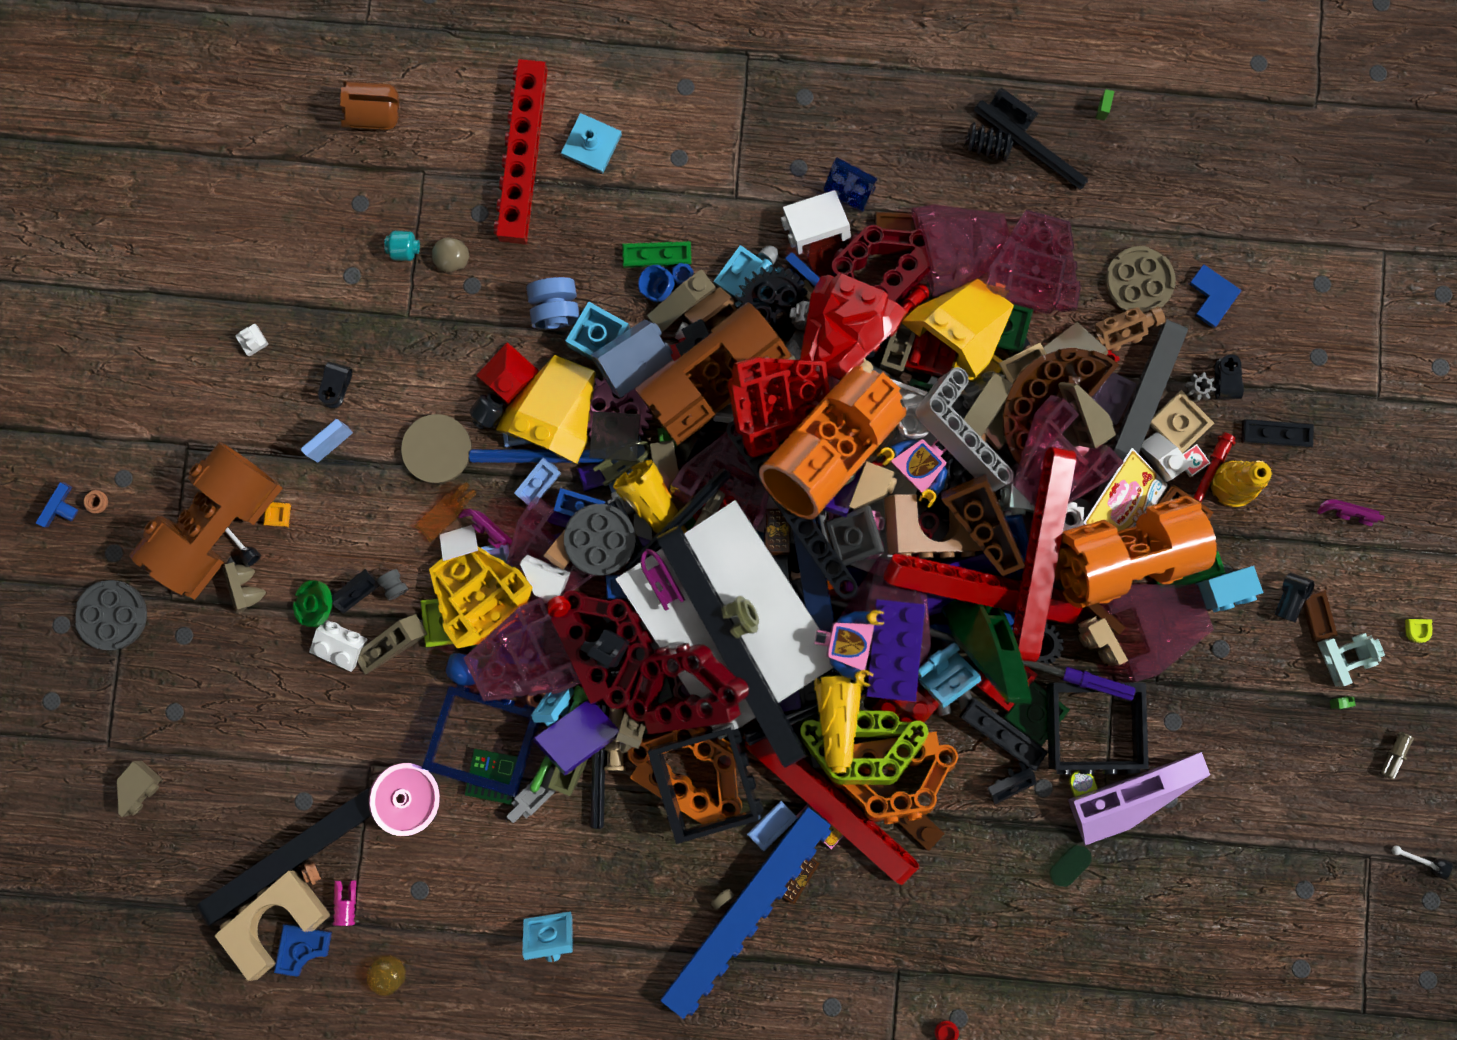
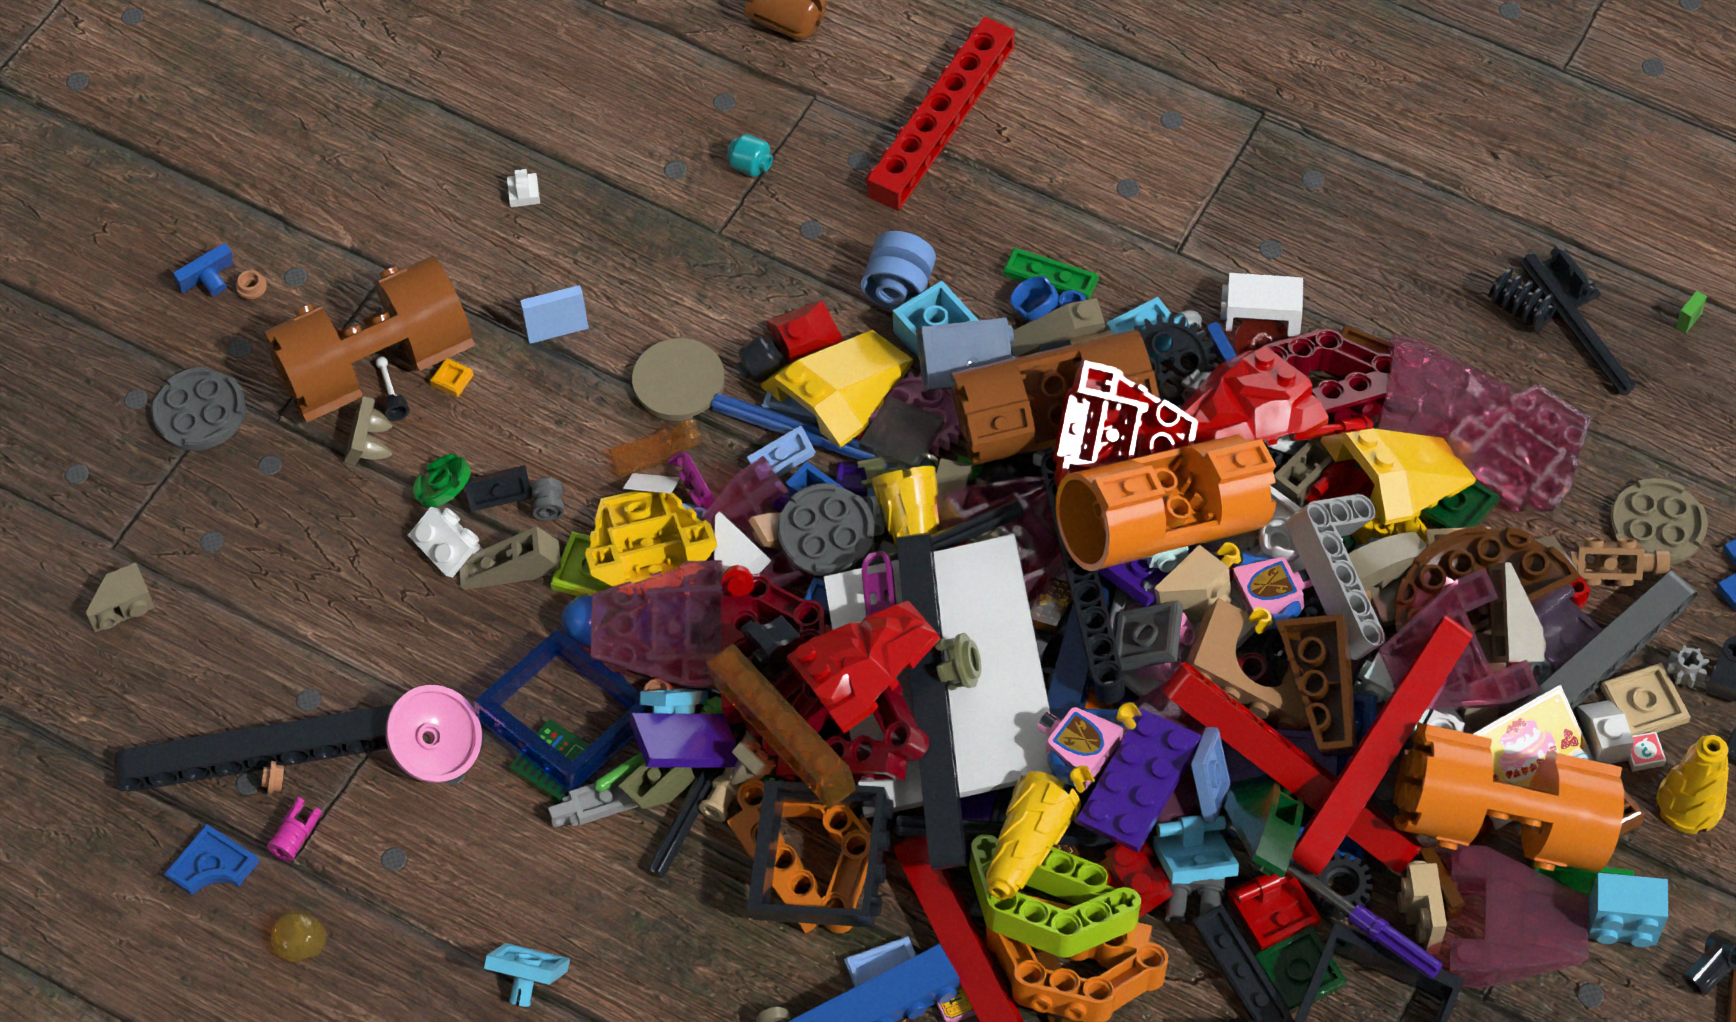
camera: 25 degrees right, 25 degrees down
(240, 934) = (152, 807): tan arch -> none
(335, 380) = (595, 266): black piece -> none
(450, 255) = (801, 186): dark tan hair -> none
(591, 143) = (1028, 135): medium azure tile -> none
(641, 712) = (781, 726): none -> clear orange brick
(677, 649) = (862, 659): none -> red wedge
(850, 184) = (1326, 278): clear blue plate -> none
(939, 623) = (1210, 774): none -> medium blue tile
(1218, 457) = (1662, 771): red pin -> none

